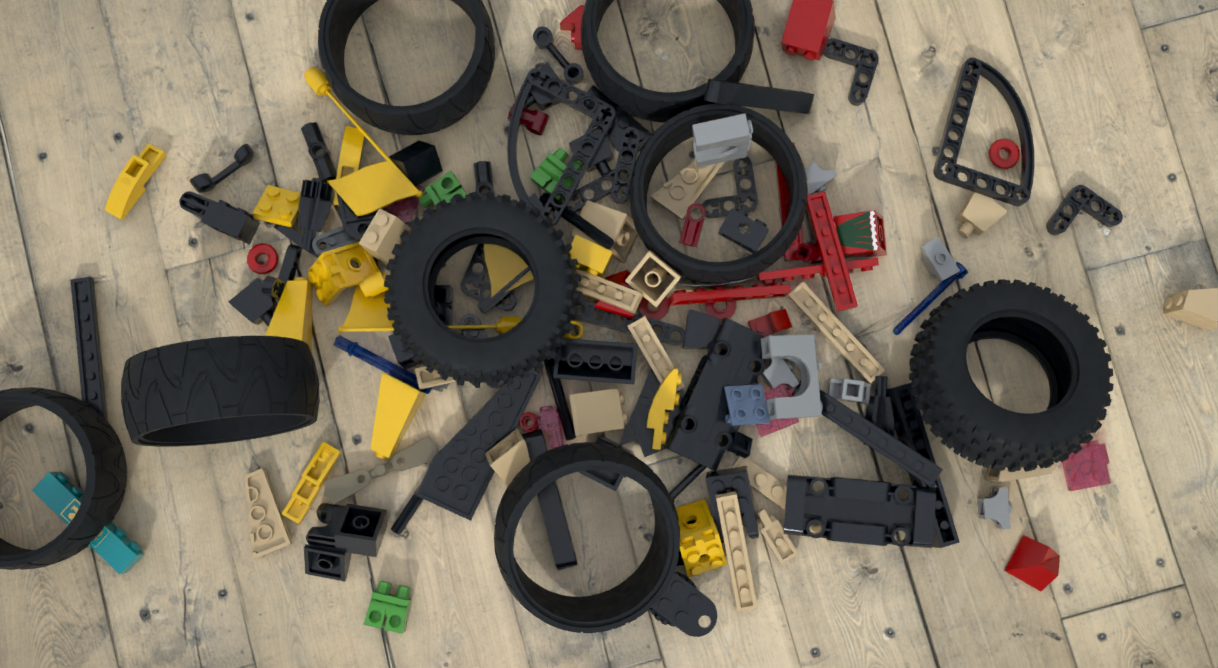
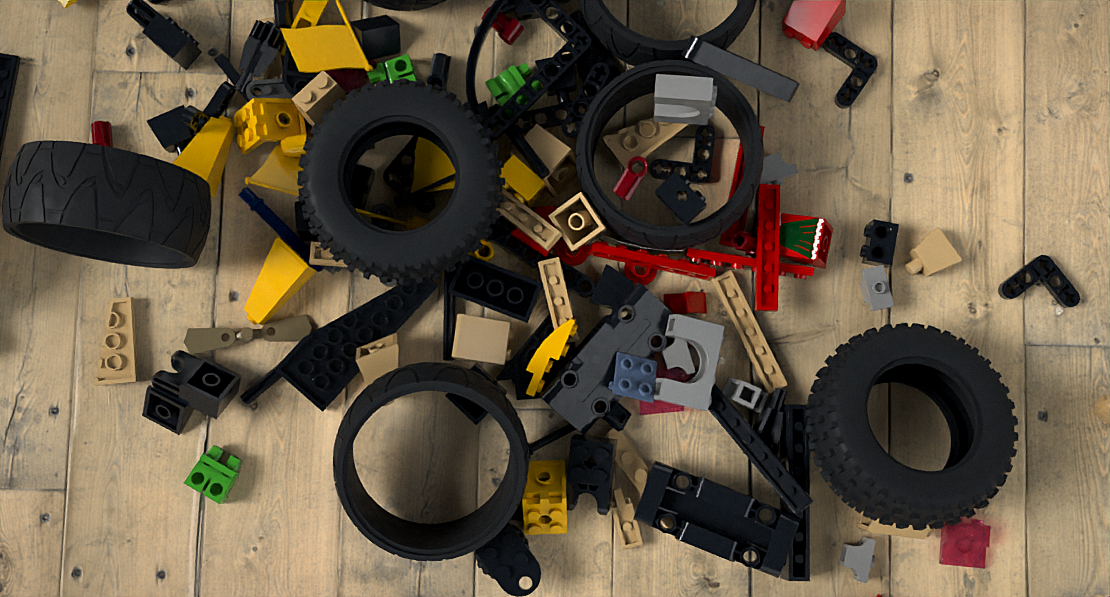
camera: 15 degrees right, 0 degrees up
(191, 327) = (102, 133): none -> dark red piece
(255, 252) = (184, 86): red piece -> none
(278, 206) = (224, 39): yellow plate -> none
(311, 483) = (175, 326): yellow slope -> none
(524, 419) = (409, 325): red plate -> none
(550, 422) = (431, 335): clear pink plate -> none
(552, 509) = (407, 423): black beam -> none
(736, 551) = (579, 522): tan plate -> none
(930, 298) = (896, 309): clear blue piece -> none
(934, 218) = (884, 245): none -> black brick
(1010, 147) = (985, 196): red piece -> none
(1024, 131) = (1004, 179): black beam -> none

